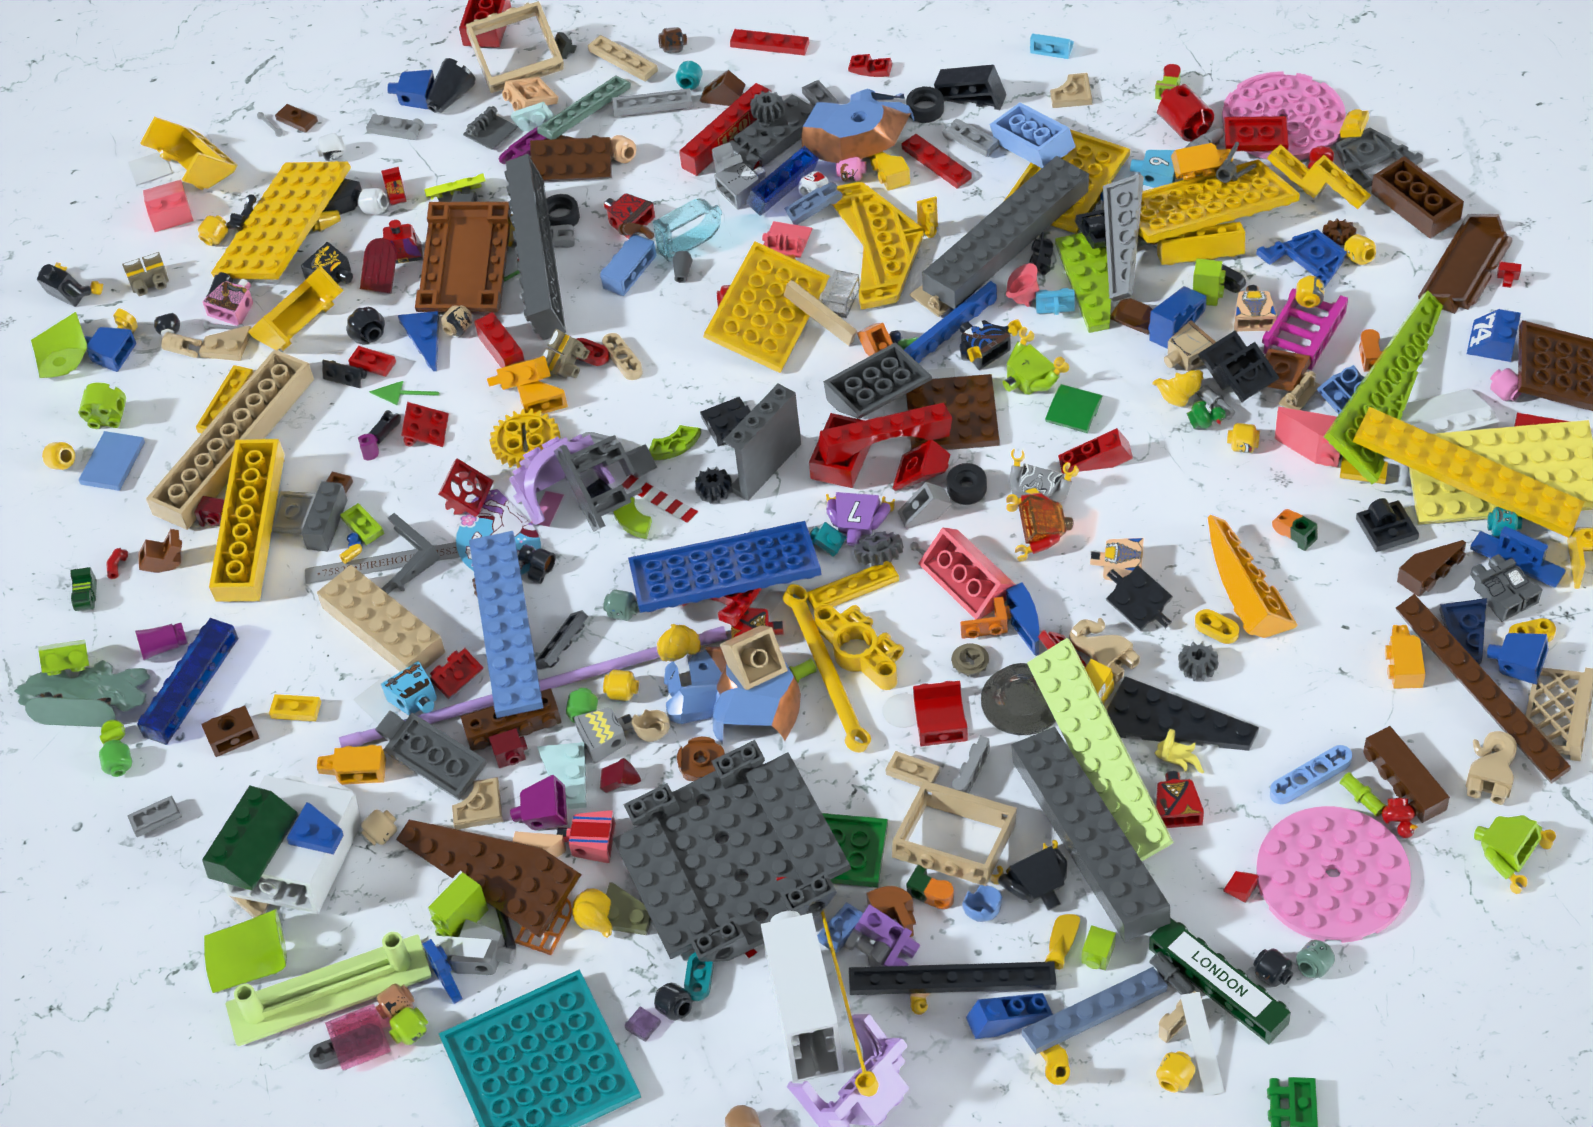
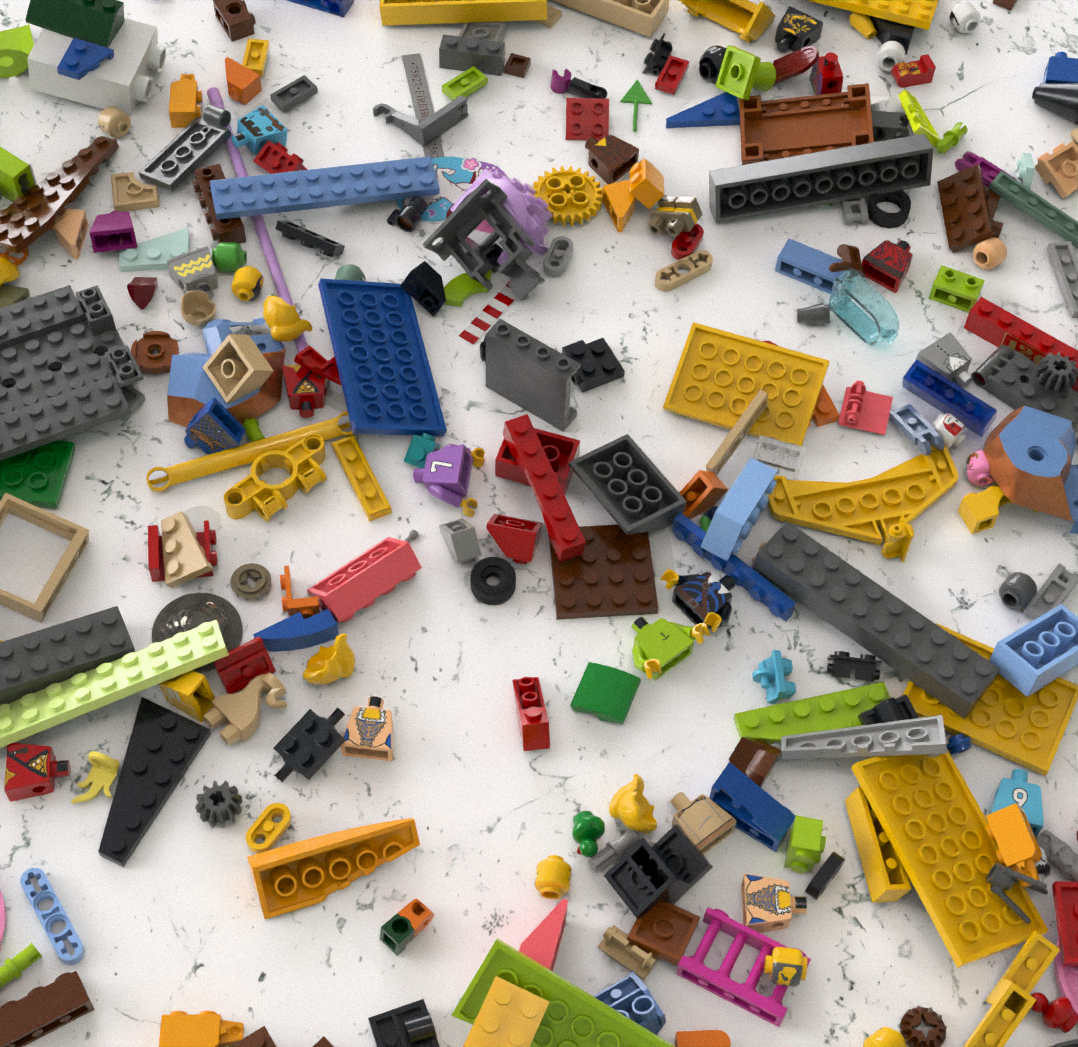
camera: 80 degrees right, 5 degrees up
(331, 717) = (241, 82): none -> orange slope
(354, 548) = (433, 82): yellow arm -> none
(355, 668) = (294, 93): none -> dark grey plate
(380, 620) = (342, 104): tan brick -> none
(394, 127) = (1007, 67): light grey plate -> none
(398, 306) = (744, 71): none -> lime plant
(456, 320) = (724, 132): head -> none
(472, 476) = (482, 147): red piece -> none
(479, 406) = (611, 157): none -> reddish brown torso
(480, 167) = (951, 138): none -> lime axle
(489, 129) = (1010, 142): dark grey hinge -> none
(498, 340) = (693, 167): red brick -> none
(508, 748) = (186, 205): dark red brick -> none
(591, 835) = (77, 268): coral torso -> none
(637, 539) = (425, 287): none -> black slope
(660, 172) = (956, 289): none -> lime brick
(674, 444) = (562, 320): lime tile -> none
(725, 157) = (974, 343): light grey slope -> none
(808, 692) = (213, 429): none -> blue torso
(878, 548) = (400, 494): dark grey gear -> none
(906, 305) = (740, 509): none -> light blue brick
(911, 769) = (114, 527): tan plate -> none
(936, 161) = (1010, 559): red plate -> none
(947, 704) = (181, 551): none -> tan wing
(970, 154) = (1017, 590): none -> dark grey head
(970, 770) = (106, 578): light grey plate -> none
(1023, 284) = (795, 640): coral piece -> none
(1033, 479) = (482, 646): light grey torso -> none
(1041, 522) = (425, 647): clear orange torso -> none
(1058, 590) = (331, 663): none -> yellow hair
(1311, 251) = (874, 992): blue wing -> none

